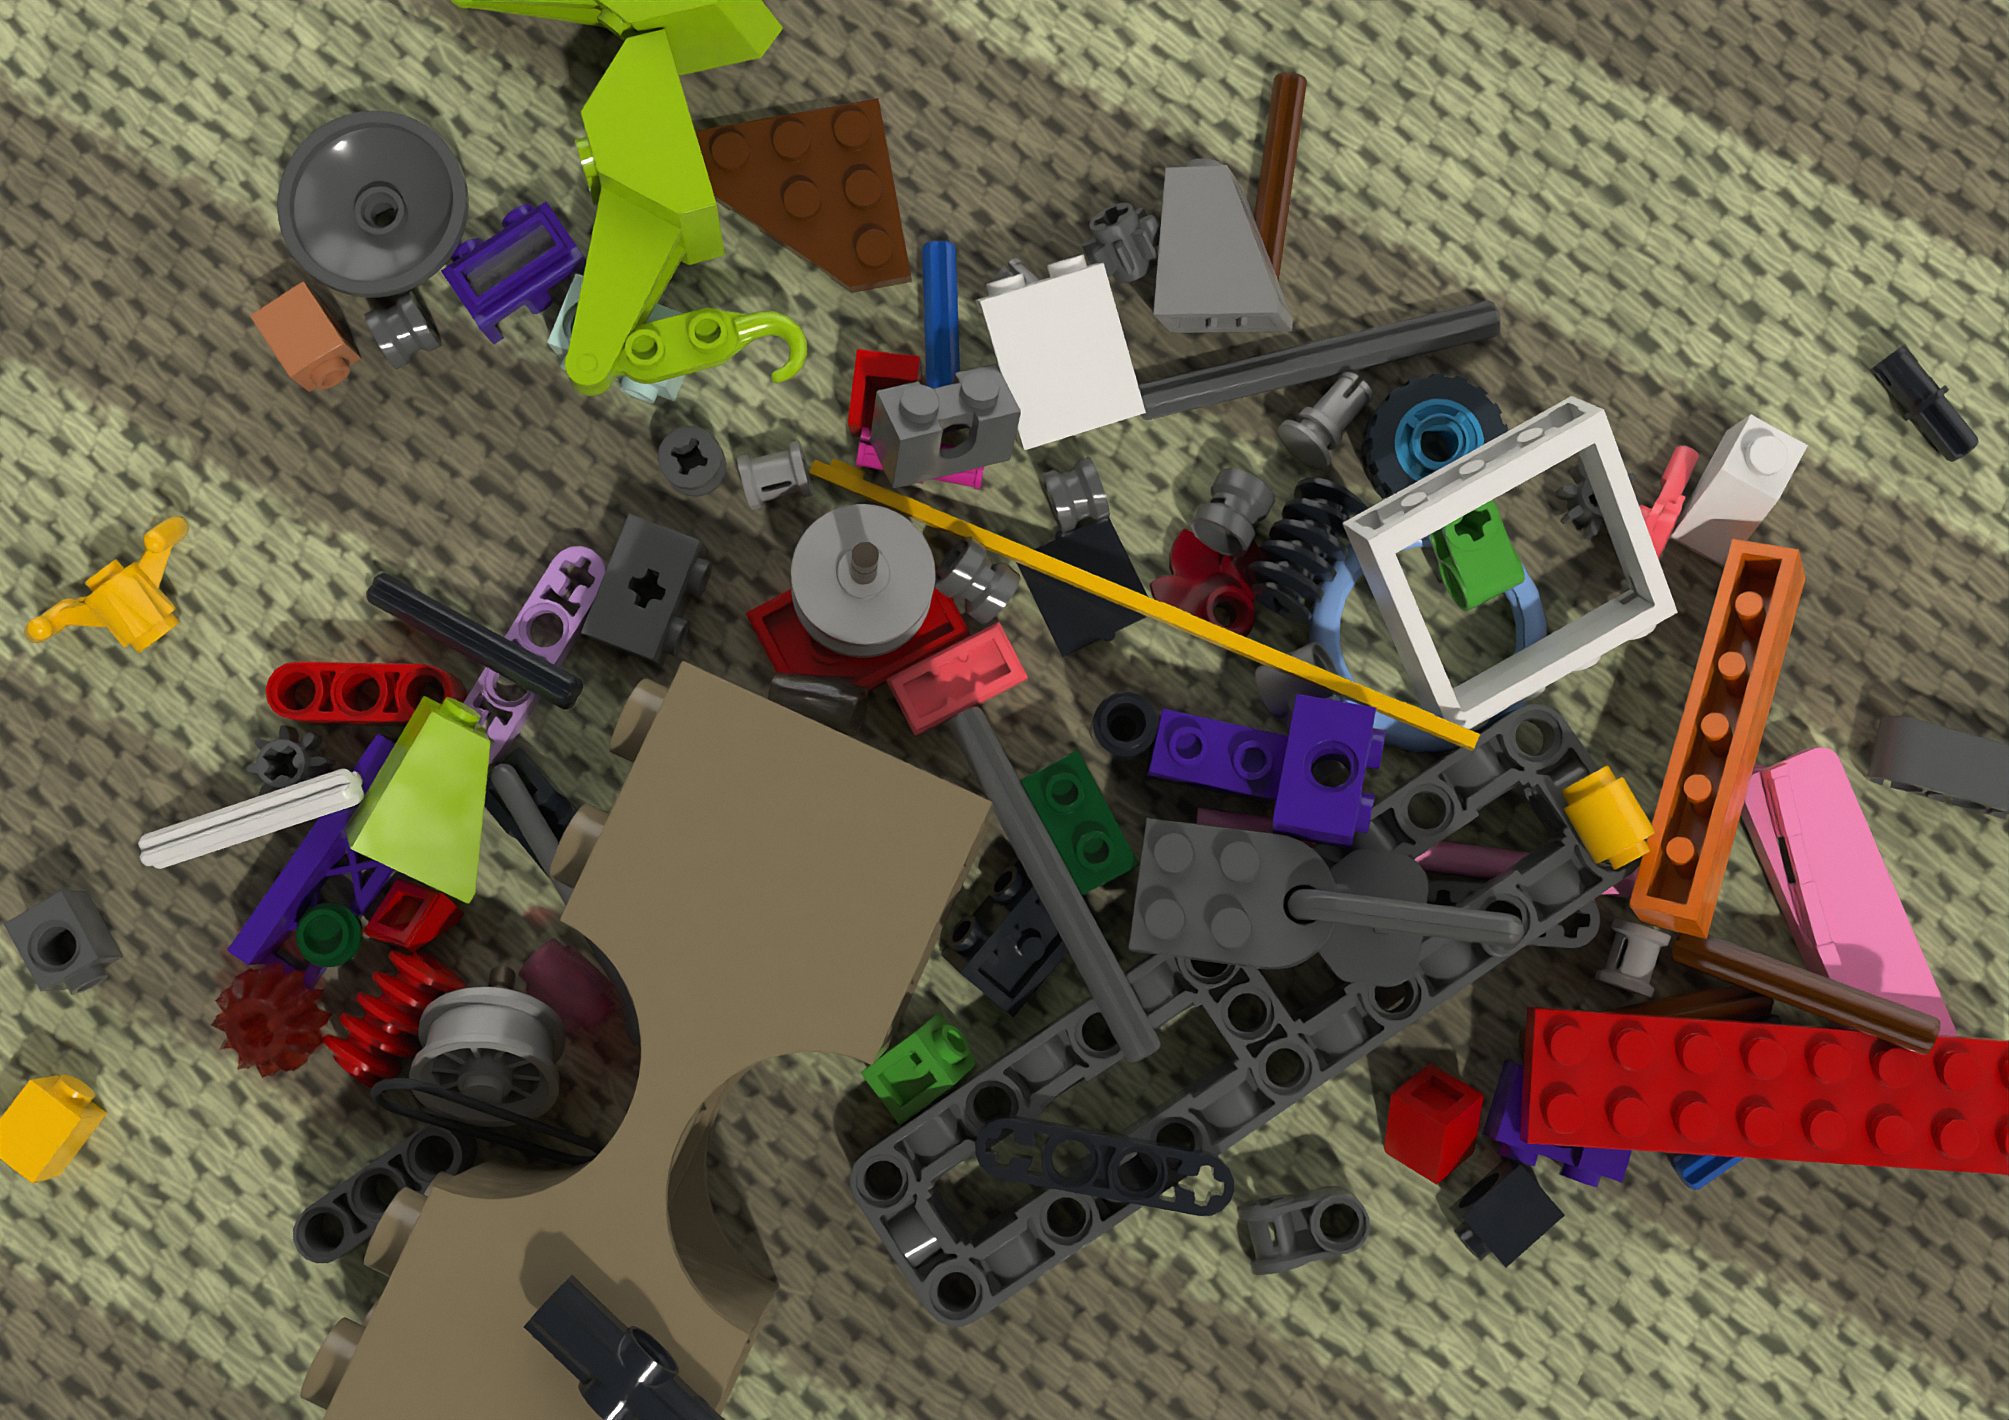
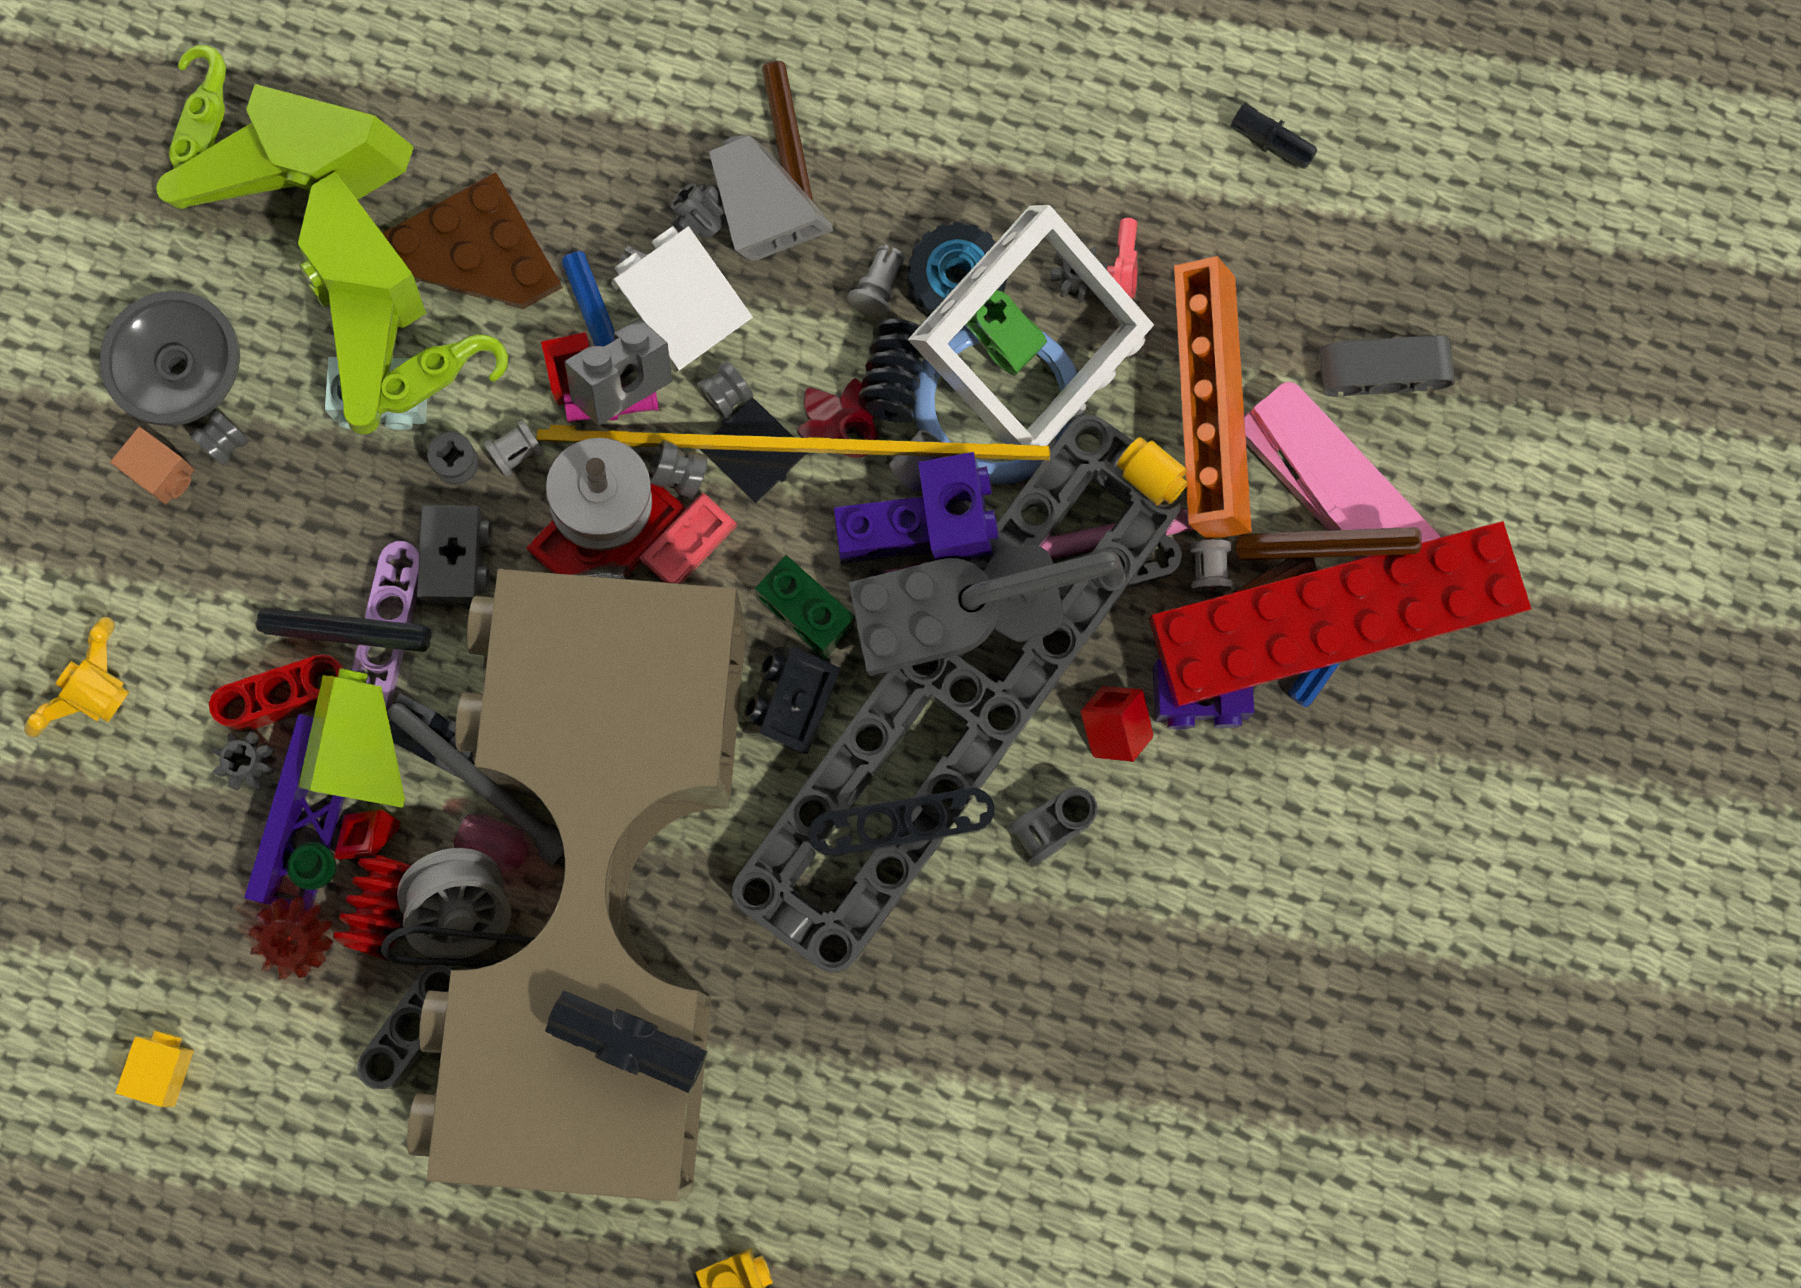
camera: 25 degrees left, 5 degrees down
(39, 935) = (105, 932): dark grey brick -> none
(251, 818) = (229, 804): white axle -> none
(513, 267) = (282, 369): dark purple window -> none
(920, 1067) = (754, 811): bright green bracket -> none
(1055, 885) = (806, 652): dark grey axle -> none
(1138, 712) = (812, 518): black brick -> none
(1234, 509) = (835, 369): dark grey wheel -> none
(1319, 359) = (859, 245): dark grey axle -> none
(1504, 1214) = (1186, 765): black brick -> none
(1737, 488) = (1168, 232): white slope -> none

